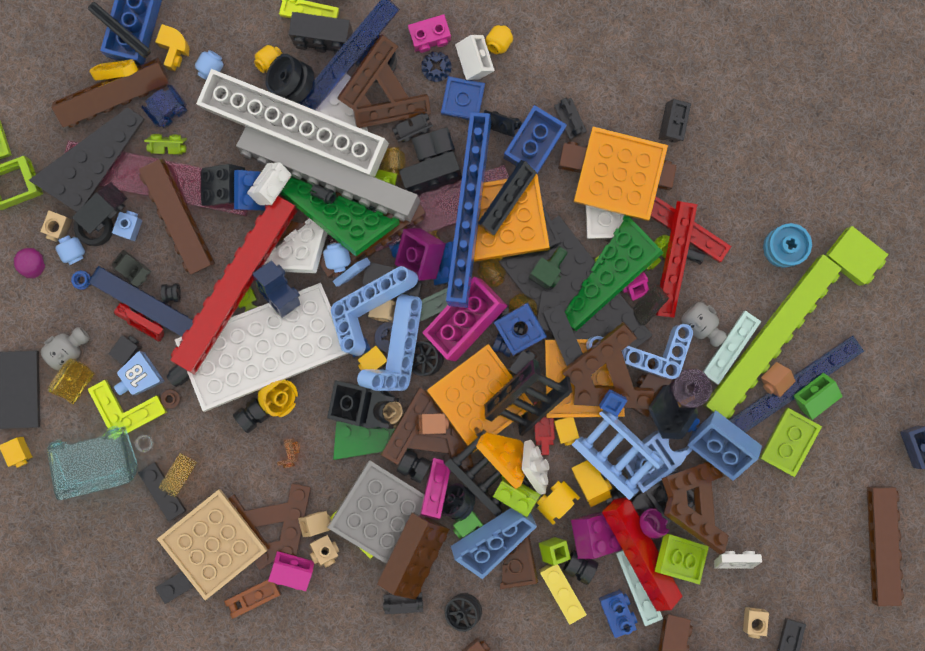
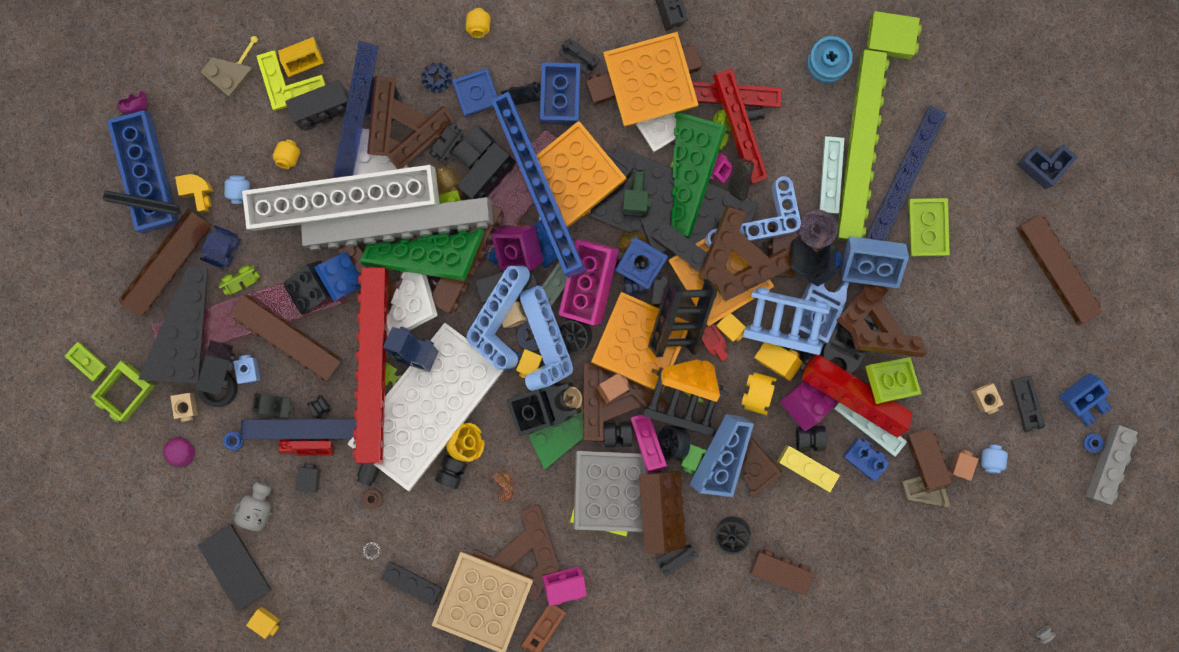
camera: 30 degrees left, 0 degrees up
(70, 250) = (209, 419): light blue head -> none
(71, 380) = (276, 533): clear yellow bracket -> none
(91, 464) = (337, 593): clear light blue windscreen -> none
(113, 70) = (156, 240): yellow beam -> none
(113, 413) = (337, 545): neon yellow plate -> none
(138, 375) = (332, 495): light blue torso -> none
(177, 475) = (417, 560): clear yellow brick -> none
(269, 183) = (351, 261): white brick -> none
(289, 78) = (315, 160): black wheel -> none
(314, 523) = (560, 533): tan brick -> none
(324, 544) = (582, 546): tan brick -> none
(327, 196) = (404, 243): black pin -> none
(336, 257) = (447, 291): light blue head -> none
(351, 272) = (467, 297): light blue tile -> none
(429, 33) = (414, 52): dark pink brick -> none
(474, 57) = (465, 50): white brick -> none
(492, 272) = (588, 228): clear yellow head -> none
(507, 197) = (565, 155): black plate -> none
(519, 499) = (726, 408): lime brick -> none
(535, 467) = (723, 374): white plate -> none
(554, 551) = (780, 437): lime brick -> none
(613, 403) = (758, 279): blue plate -> none
(653, 523) = (851, 363): magenta hair -> none
(704, 323) = (796, 167): light grey piece -> none
(730, 560) = (936, 357): white plate -> none
(778, 379) = (887, 179): nougat brick -> none
(818, 396) = (929, 174): bright green brick -> none

